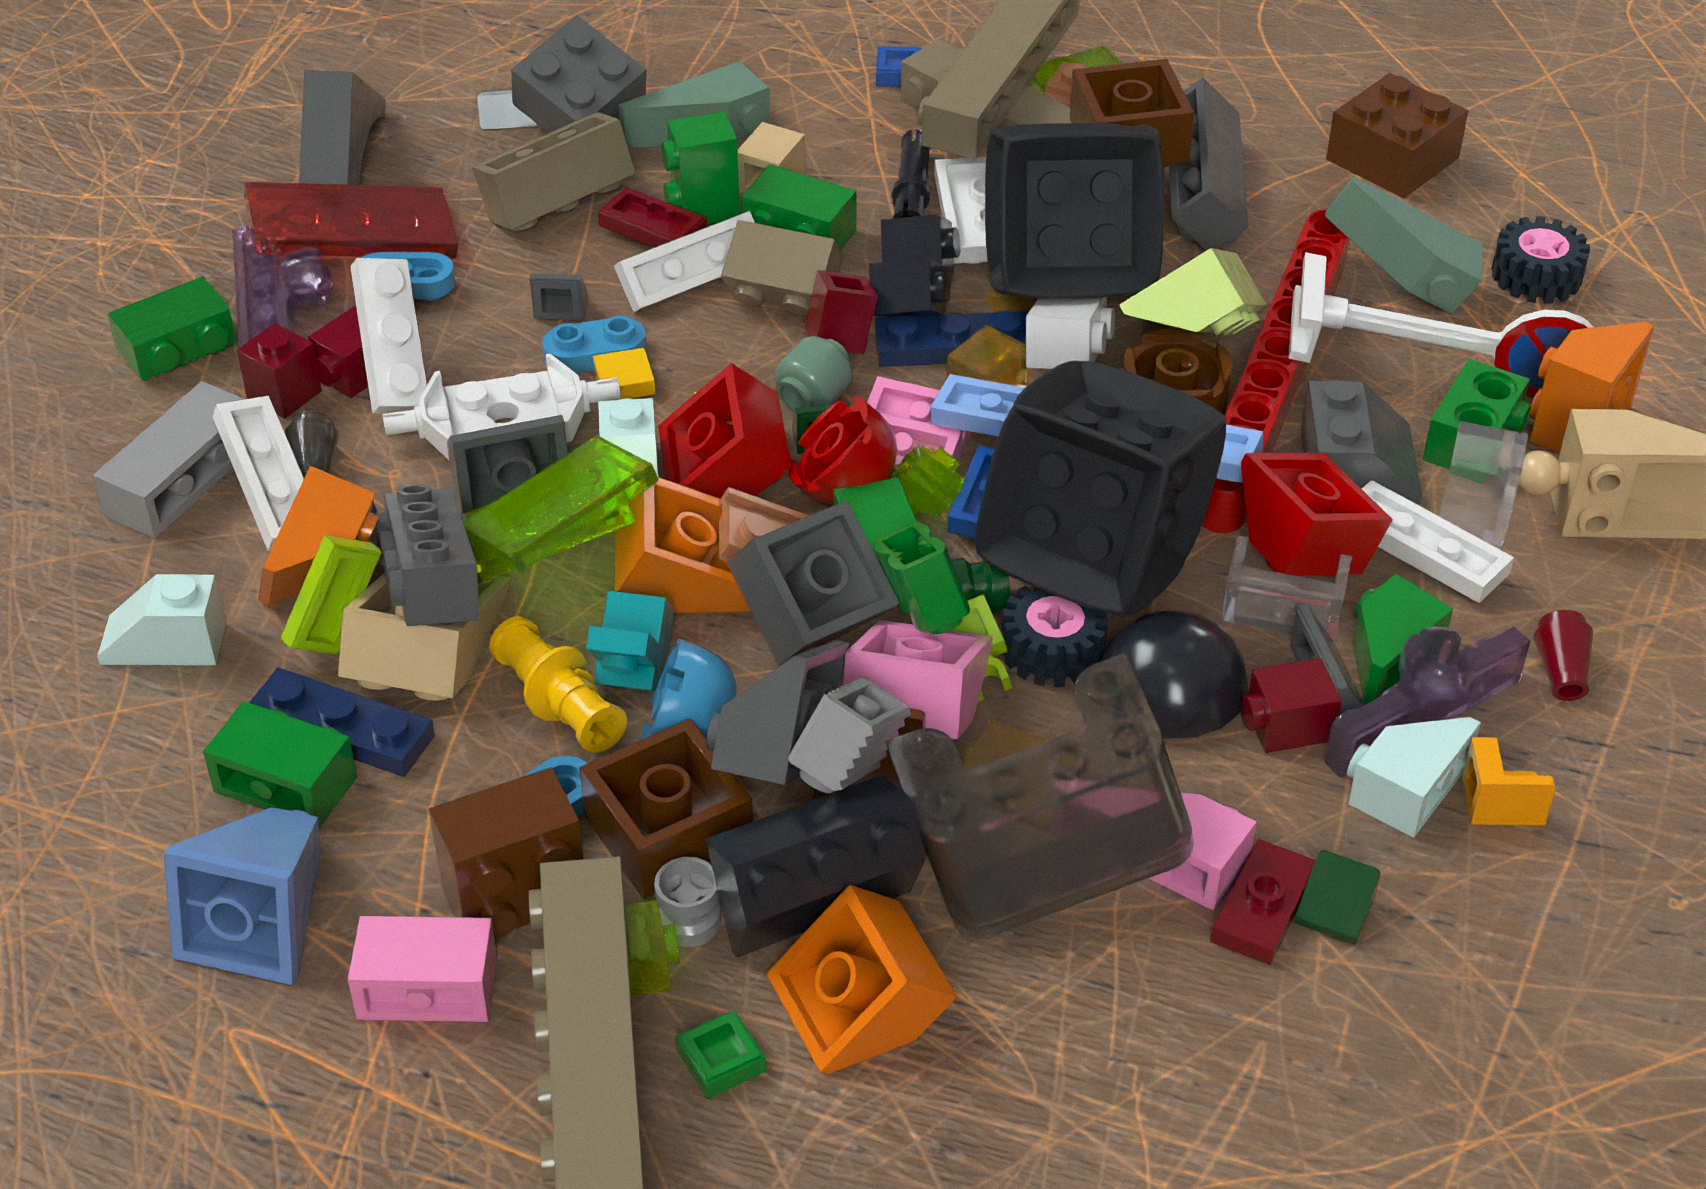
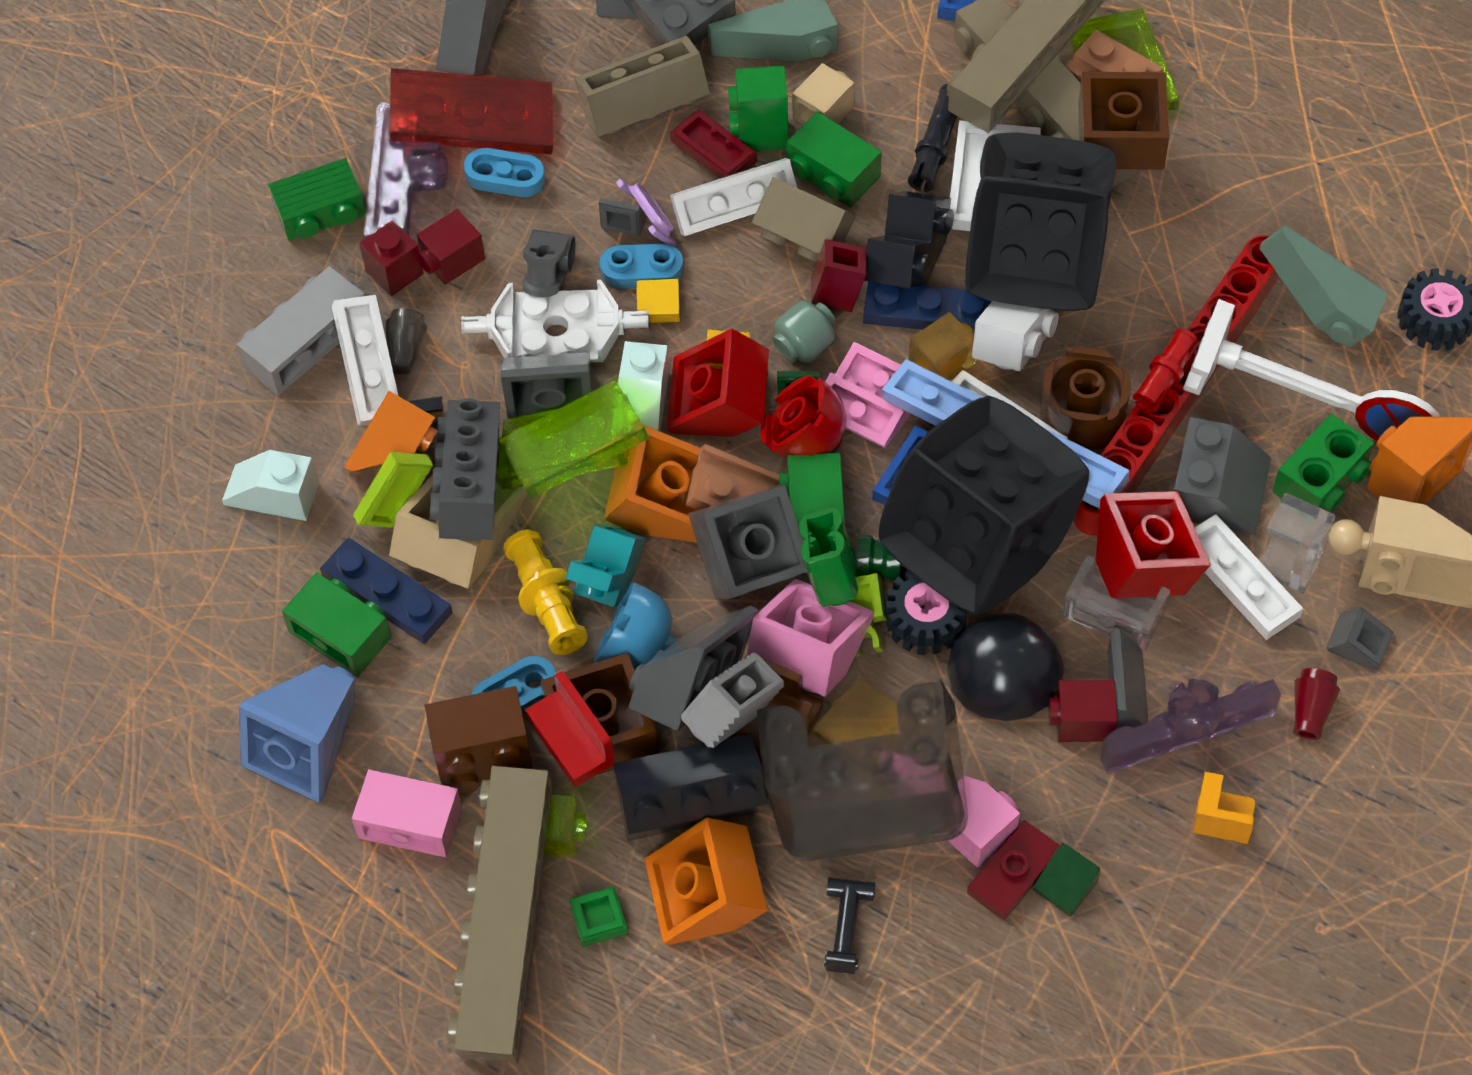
camera: 15 degrees right, 15 degrees up
(388, 334) = (478, 244): white plate -> none
(478, 348) = (548, 262): none -> dark grey piece
(604, 290) = (652, 210): none -> lavender piece
(642, 809) = (571, 732): none -> red panel
(689, 900) = (598, 789): light grey wheel -> none
(929, 479) = (865, 453): clear neon green gear -> none
(1070, 1043) = (850, 892): none -> black piece
(1202, 296) = (1127, 322): yellowish green slope -> none
(1210, 189) = (1179, 195): dark grey brick -> none
(1265, 337) = (1166, 370): none -> red pin
(1383, 625) = (1186, 652): green slope -> none
(1396, 135) = (1361, 155): reddish brown brick -> none
(1410, 770) = (1156, 784): light aqua slope -> none
(1588, 583) = (1360, 638): none -> dark grey slope

